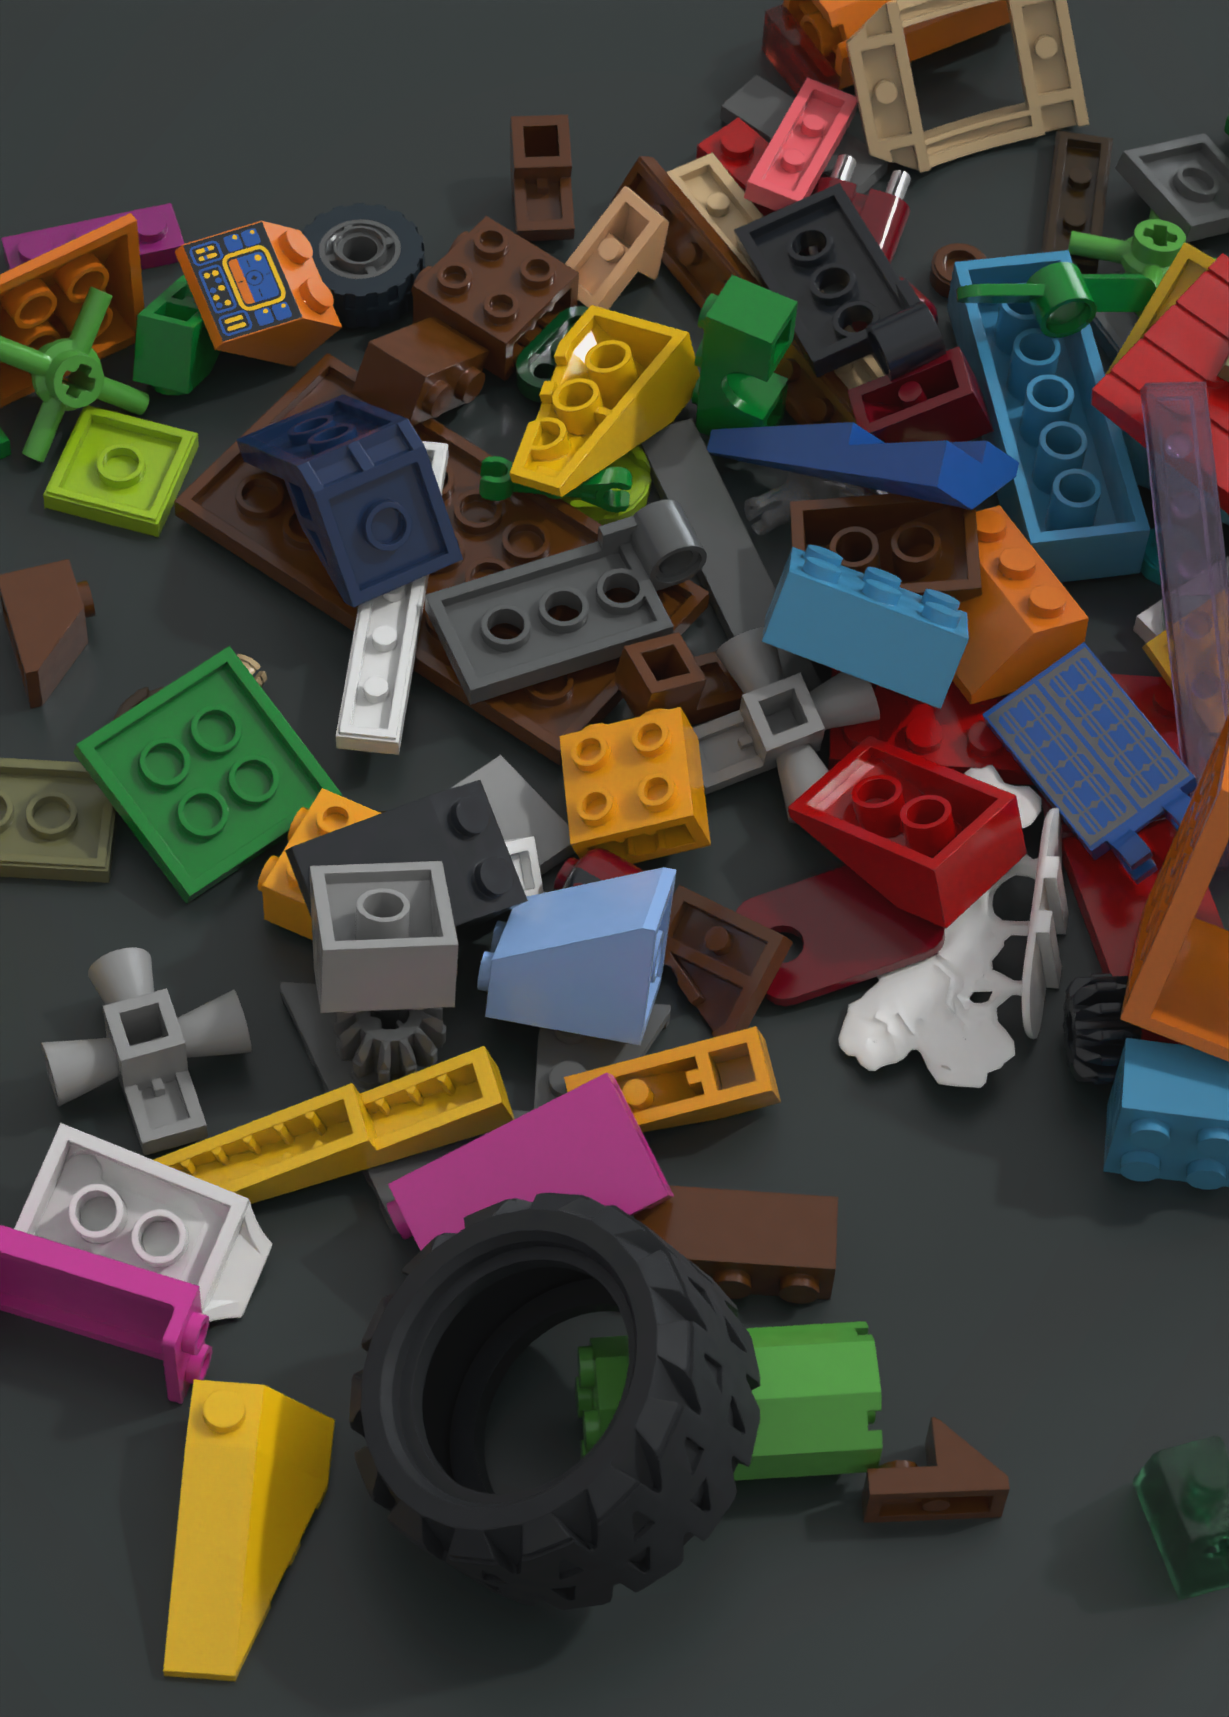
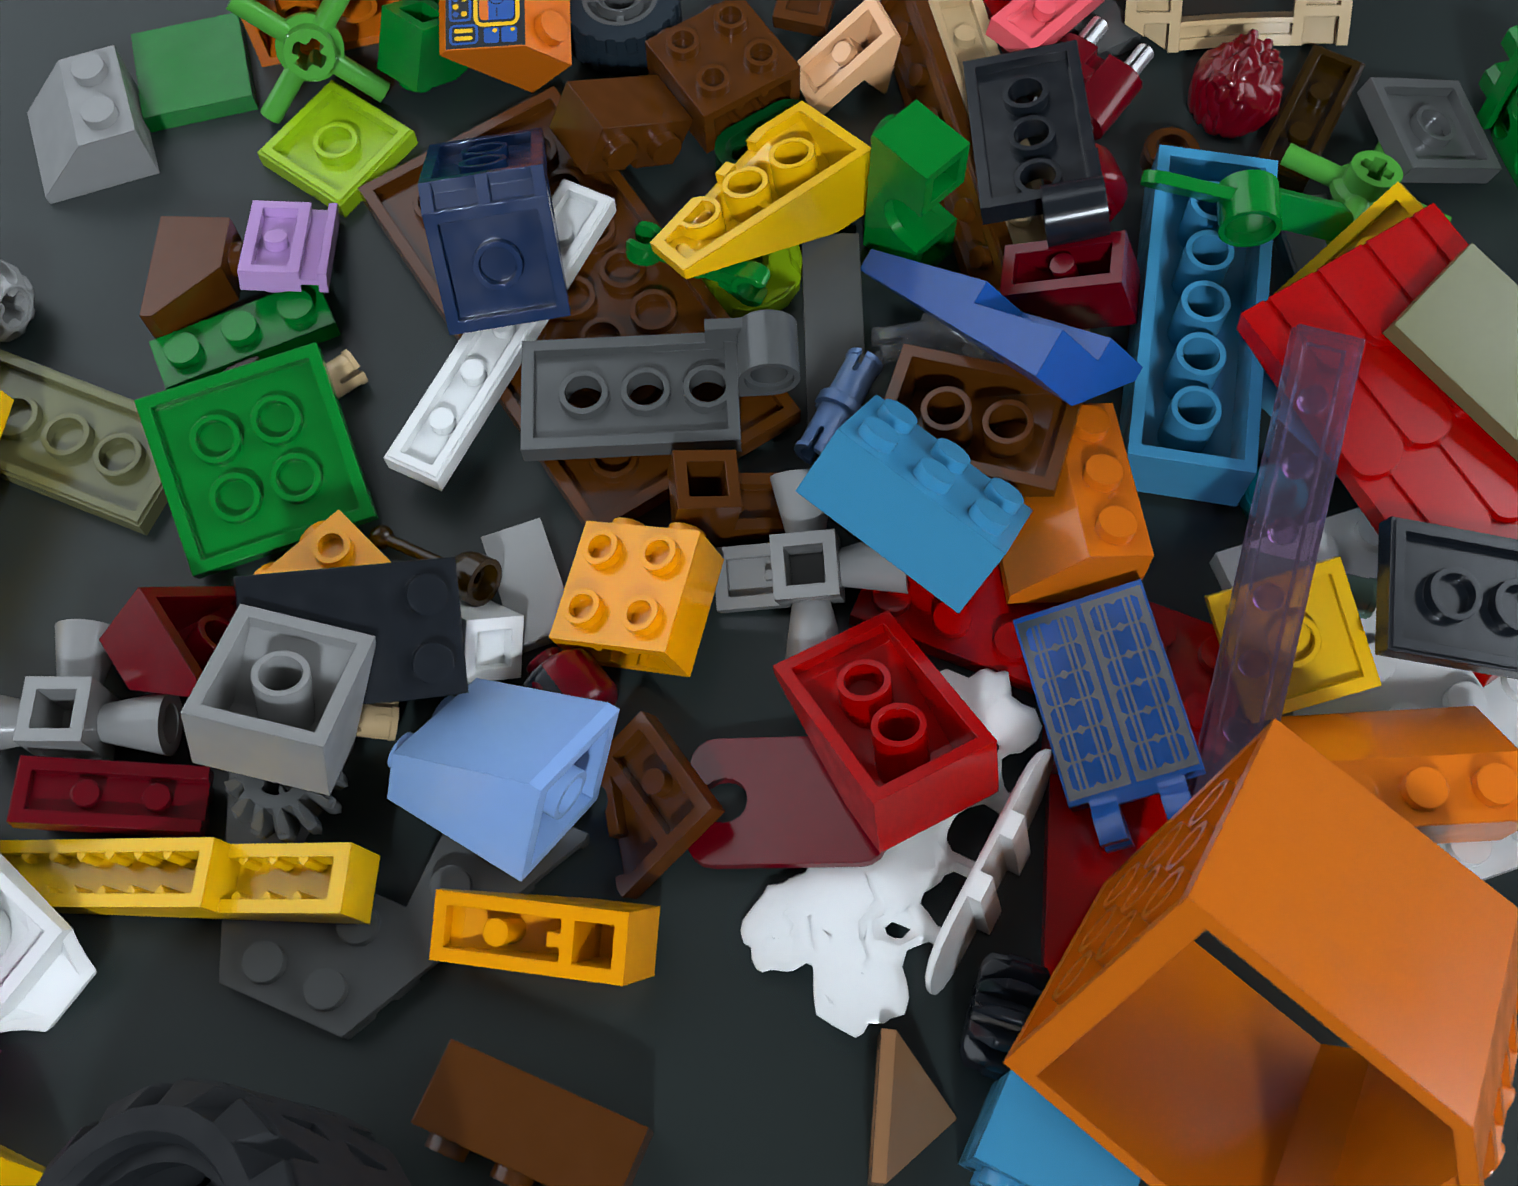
camera: 25 degrees right, 10 degrees up
(132, 574) = (288, 247): none -> lavender plate
(137, 658) = (252, 330): none -> green plate
(216, 1093) = (111, 797): none -> dark red hinge
(223, 947) = (168, 636): none -> dark red slope
(567, 1146) = (338, 1020): dark pink panel -> none
(745, 577) = (838, 402): none -> medium blue pin
(999, 189) = (1237, 86): none -> dark red hair
(1039, 1134) = (905, 1110): none -> medium nougat slope

